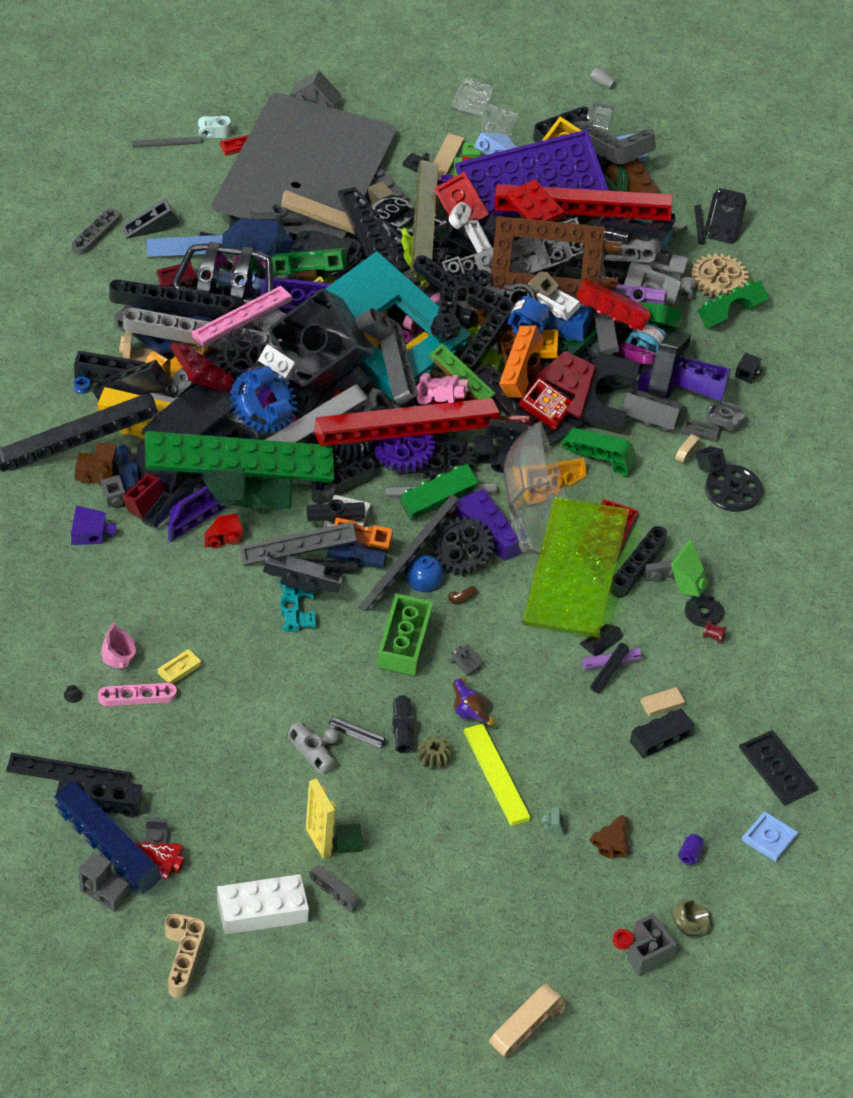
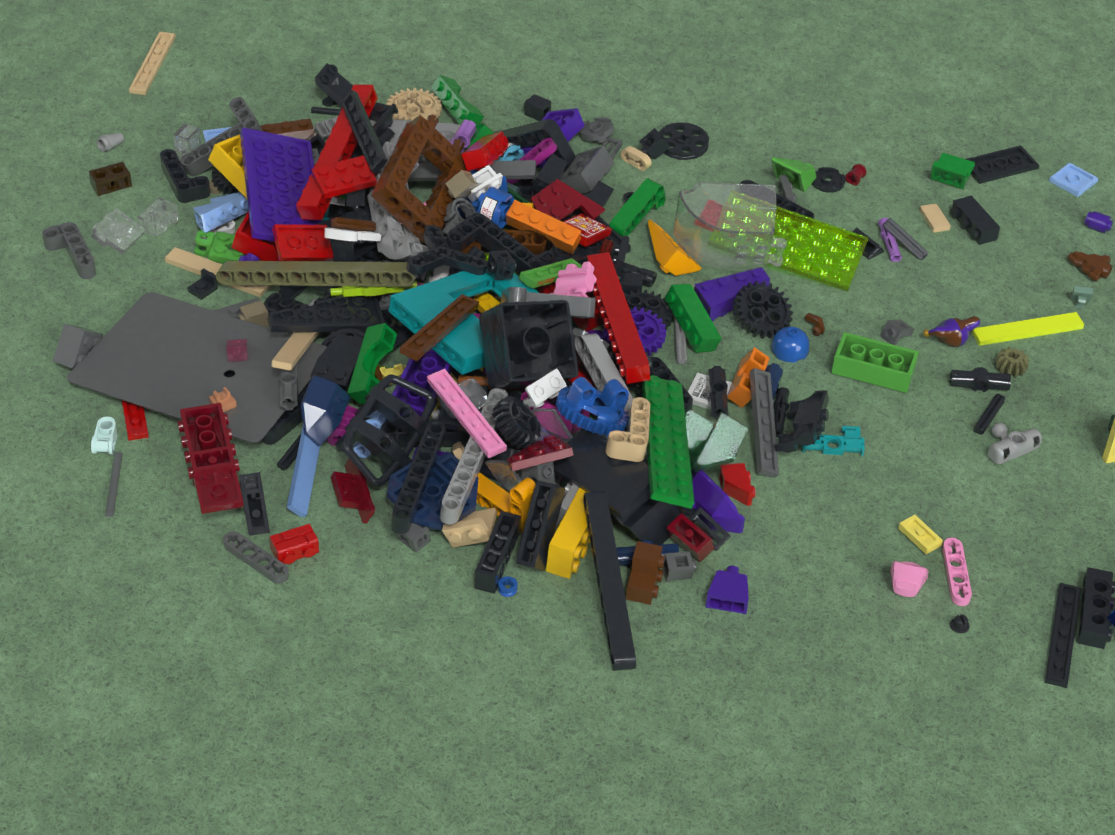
camera: 80 degrees left, 5 degrees down
(108, 249) = (294, 544): none -> red brick
(181, 178) = (210, 457): none -> dark red wedge
(230, 425) = (631, 444): none -> tan beam
(255, 180) = (226, 399): none -> nougat tile
(321, 184) = (237, 350): none -> clear pink bracket
(334, 281) = (439, 327): none -> reddish brown plate
(408, 555) = (796, 358): dark grey plate -> none
(442, 78) = (69, 237): none -> dark grey beam
(481, 223) = (353, 224): none -> reddish brown axle
(546, 84) = (110, 178): none -> dark brown brick
(601, 203) = (364, 132): none -> black plate
(735, 90) = (152, 63): none -> tan tile
(744, 717) = (952, 170): none -> green bracket

